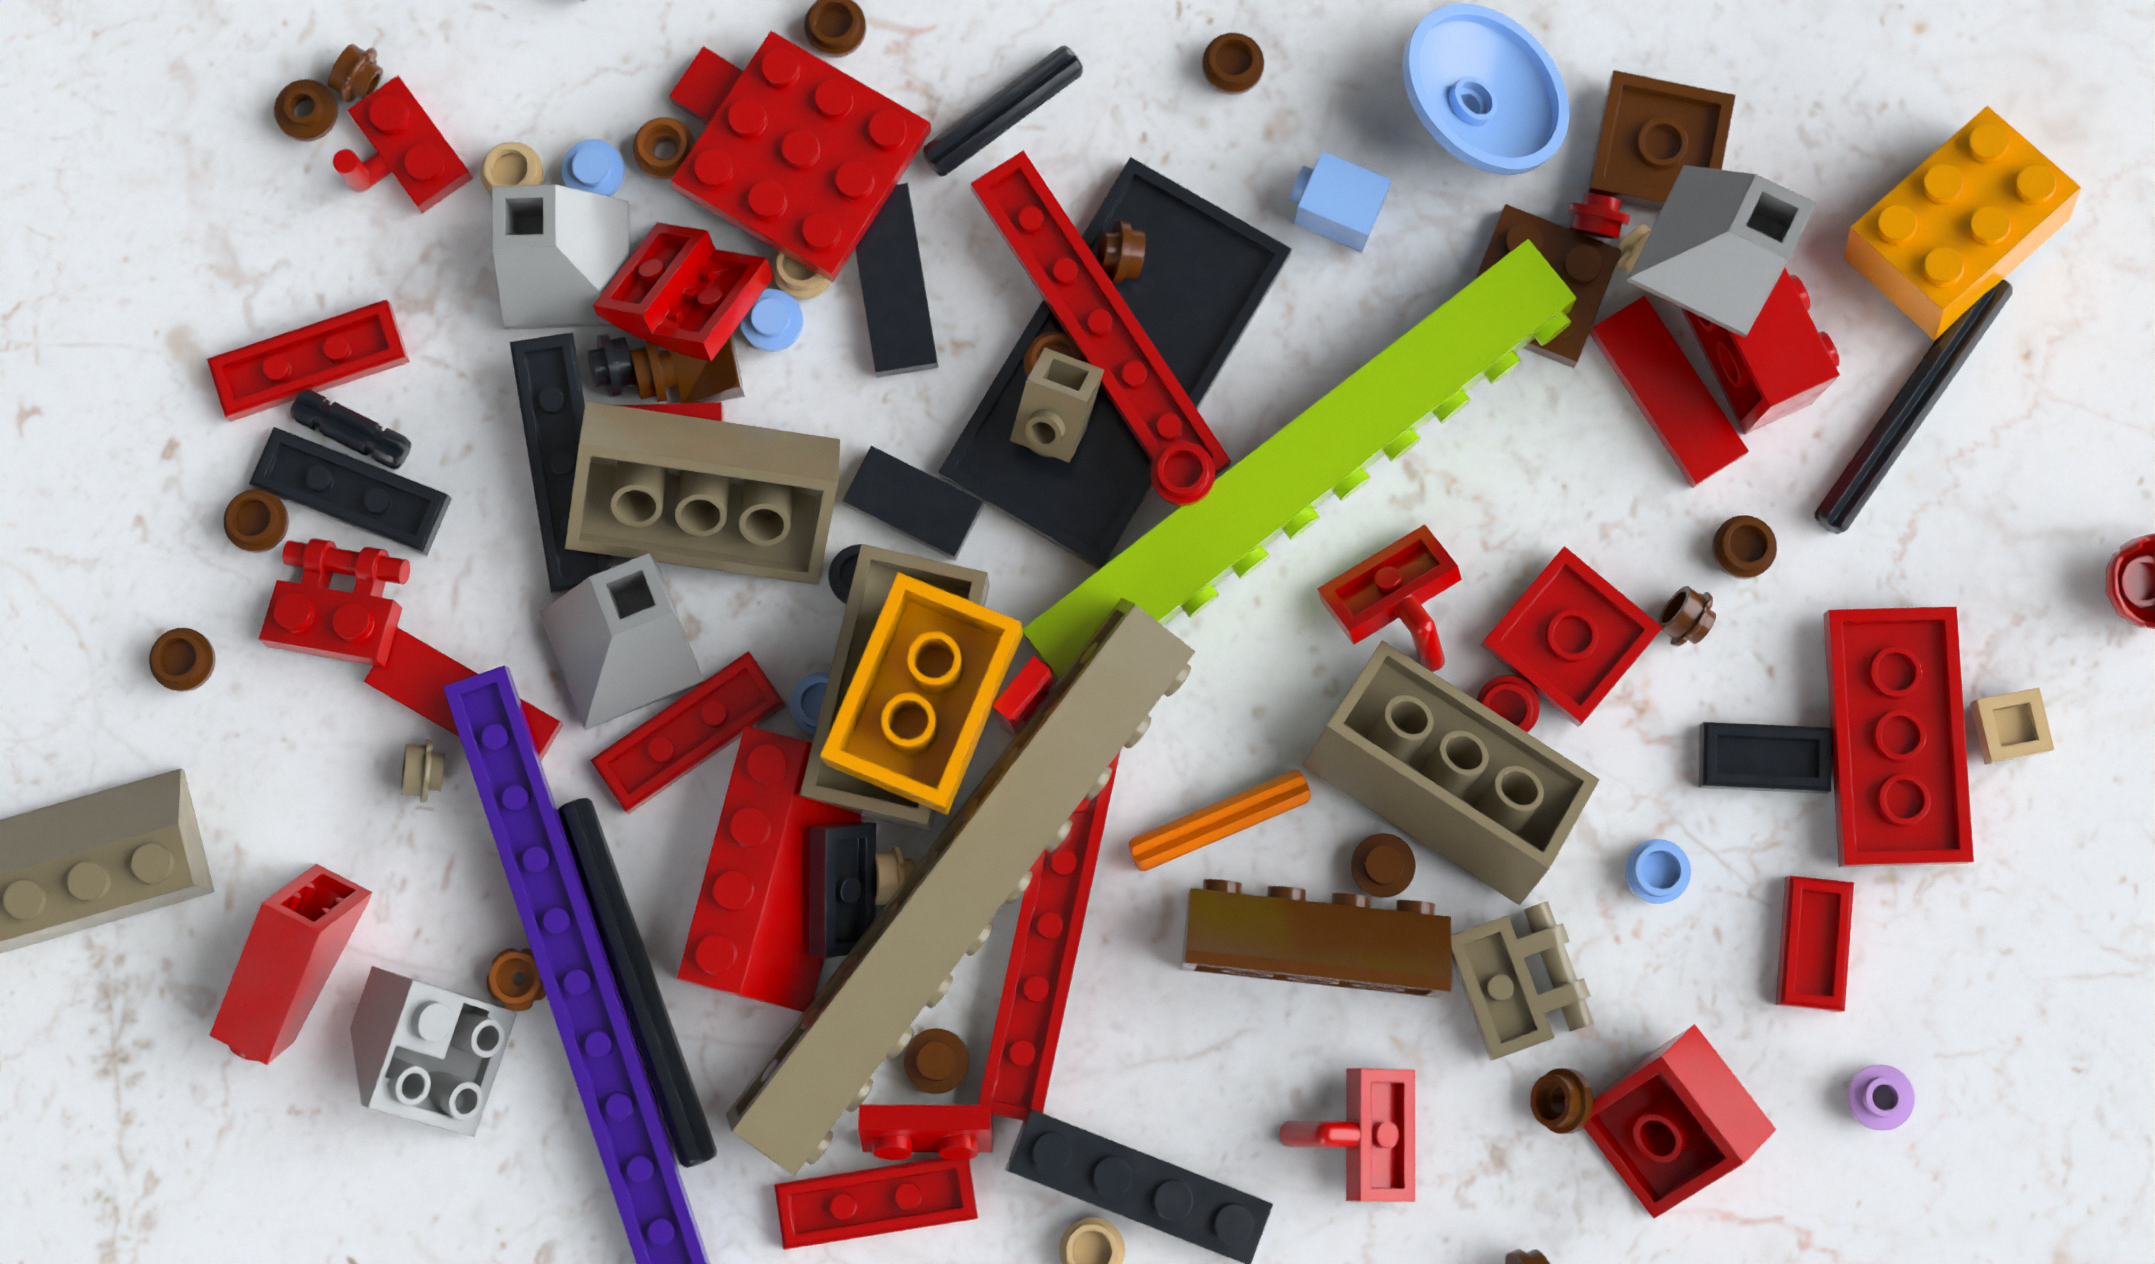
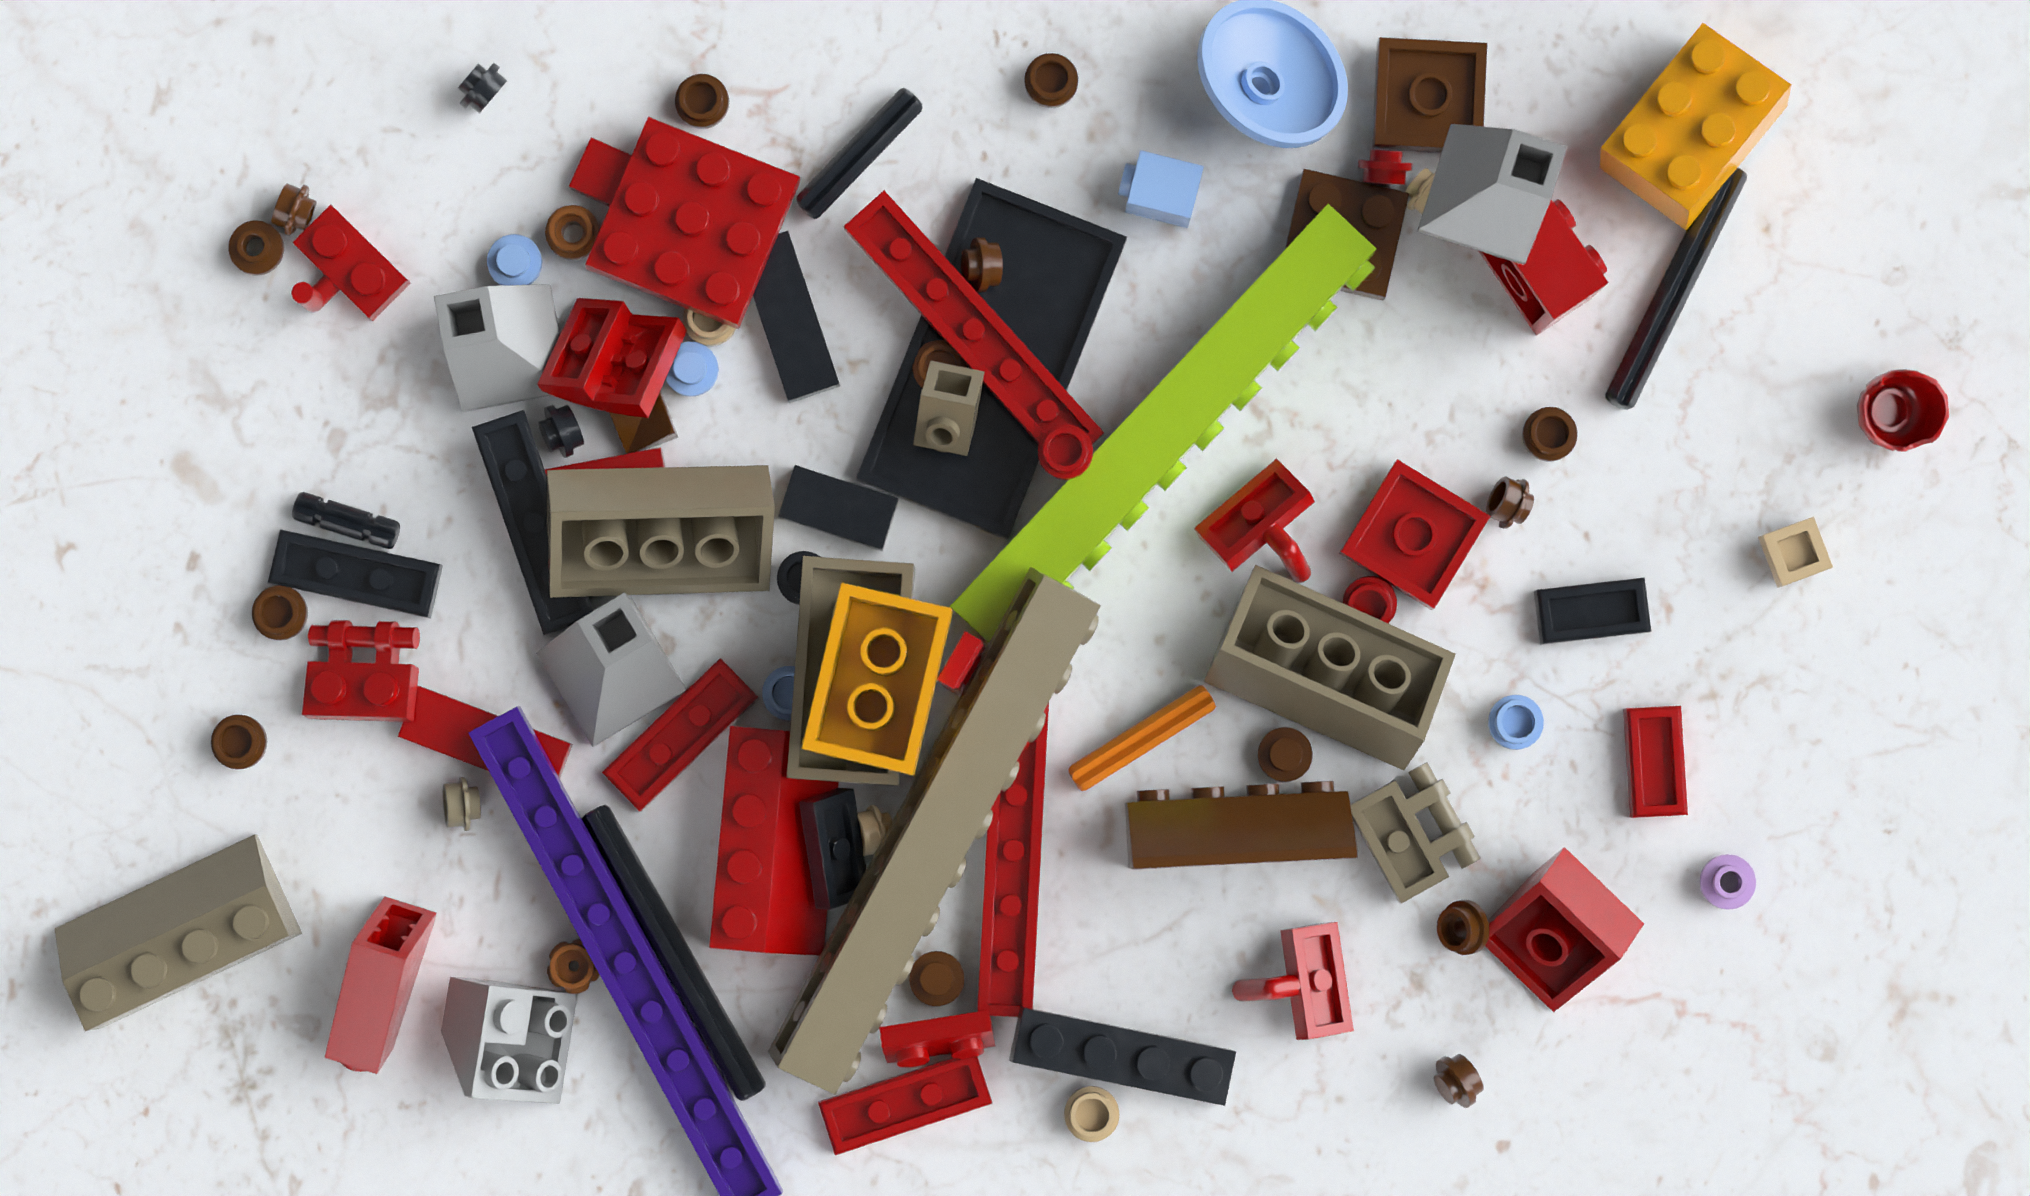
camera: 15 degrees left, 5 degrees up
(308, 358) = (298, 466): red tile -> none
(511, 166) = (444, 272): tan plate -> none
(653, 371) = (597, 431): reddish brown plate -> none
(1668, 391) = (1466, 310): red tile -> none
(1898, 737) = (1701, 576): red plate -> none

